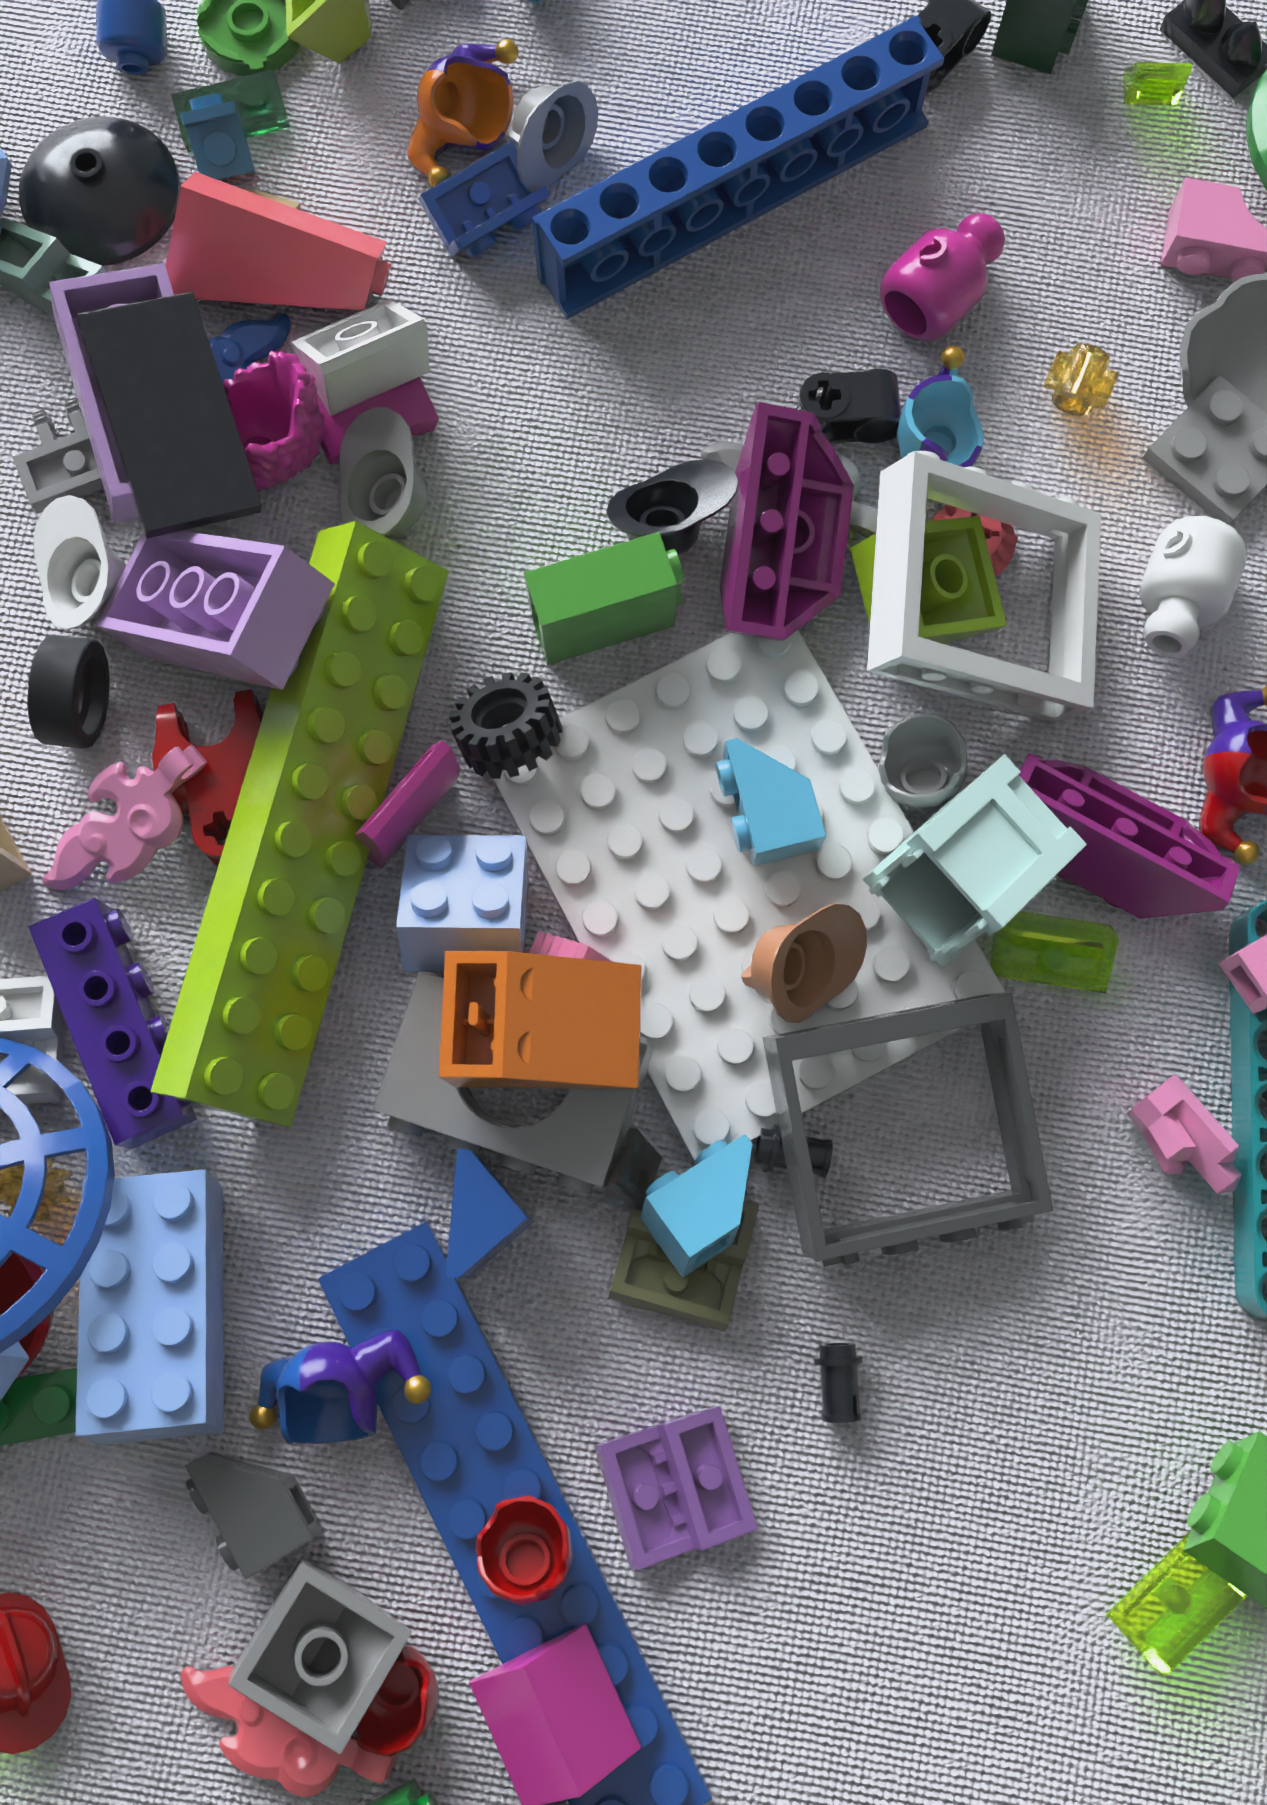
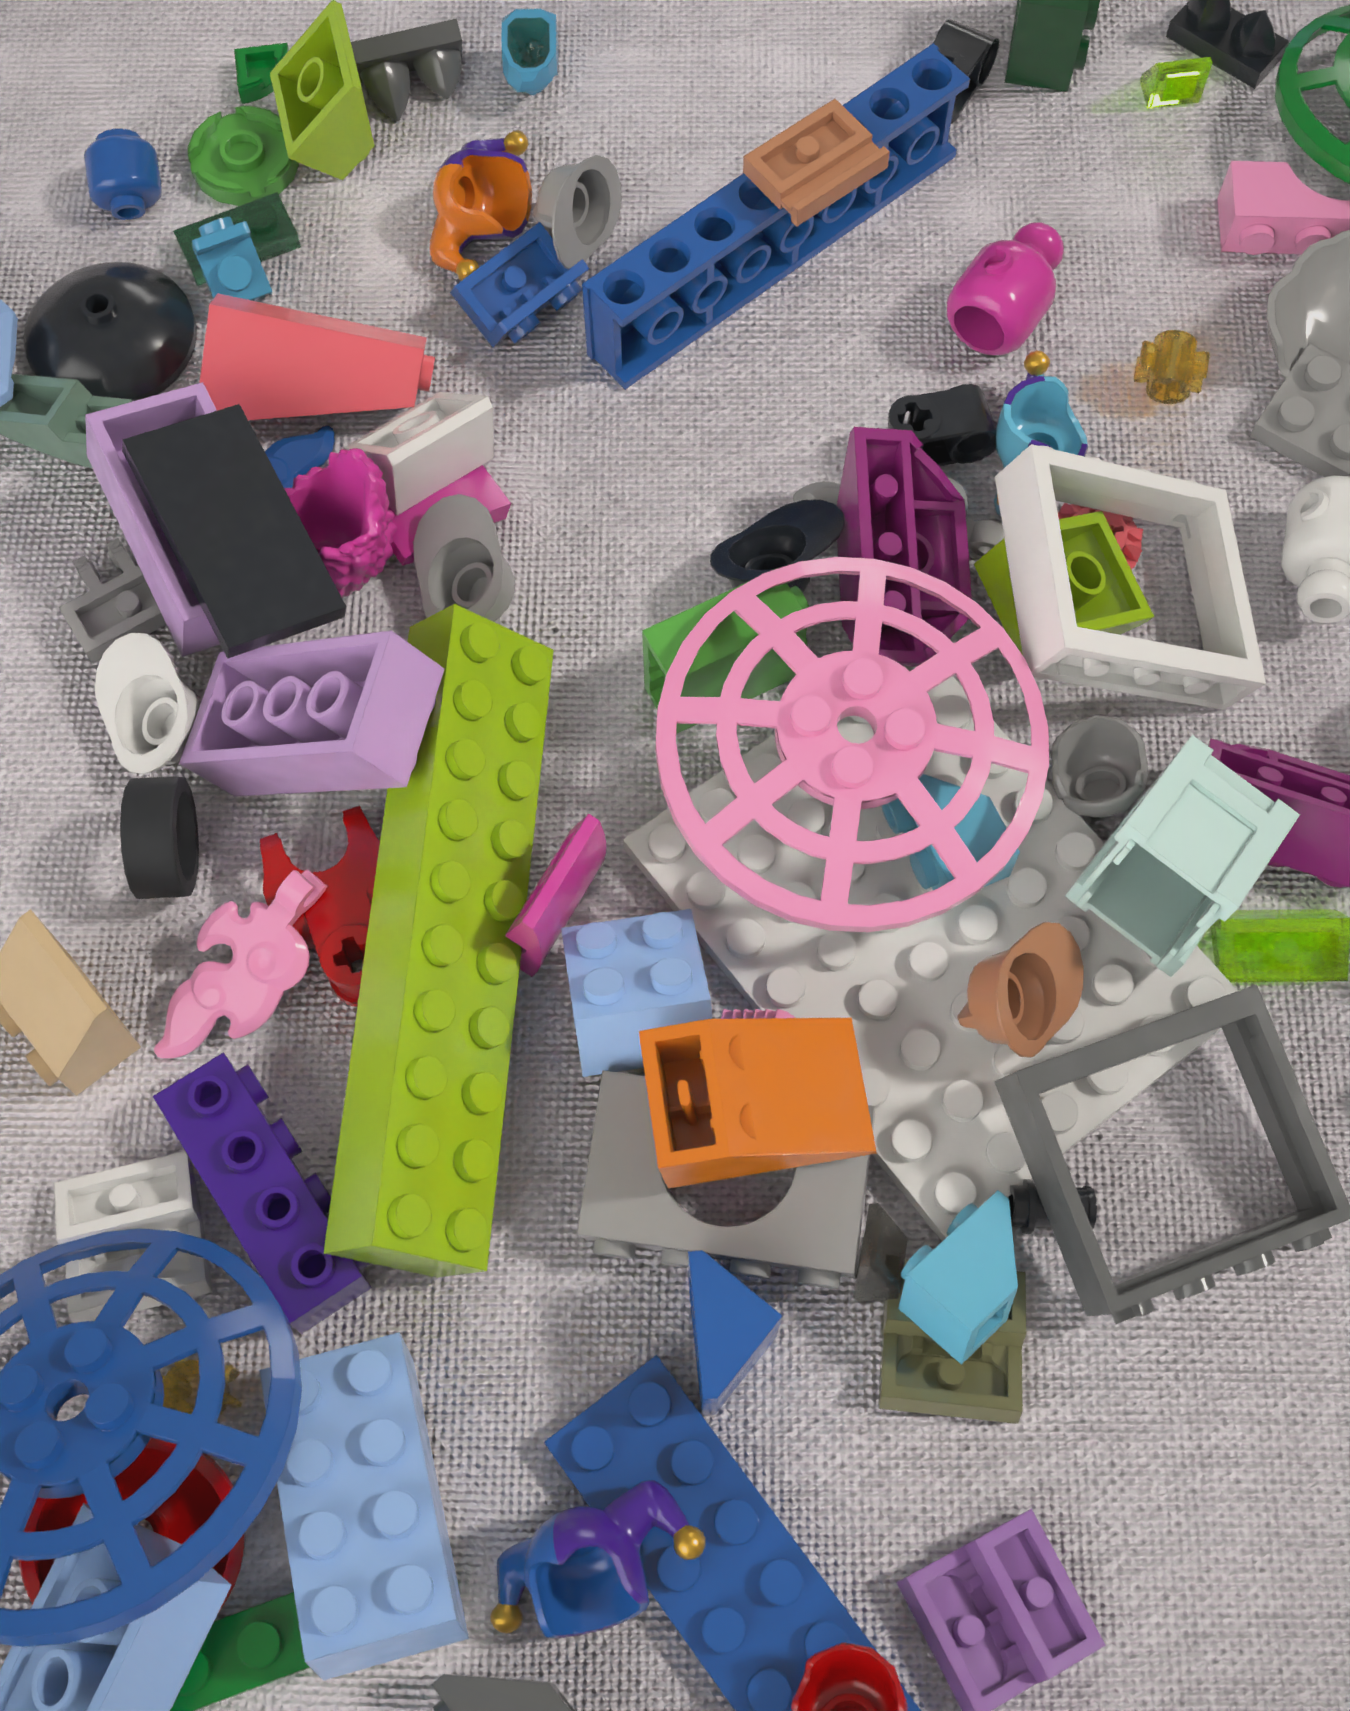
camera: 10 degrees left, 10 degrees down
(529, 735) = (632, 804): black tyre -> none
(687, 743) = (848, 772): none -> bright pink dish
(774, 126) = (815, 161): none -> nougat plate
(839, 1382) = (1160, 1456): black pin -> none

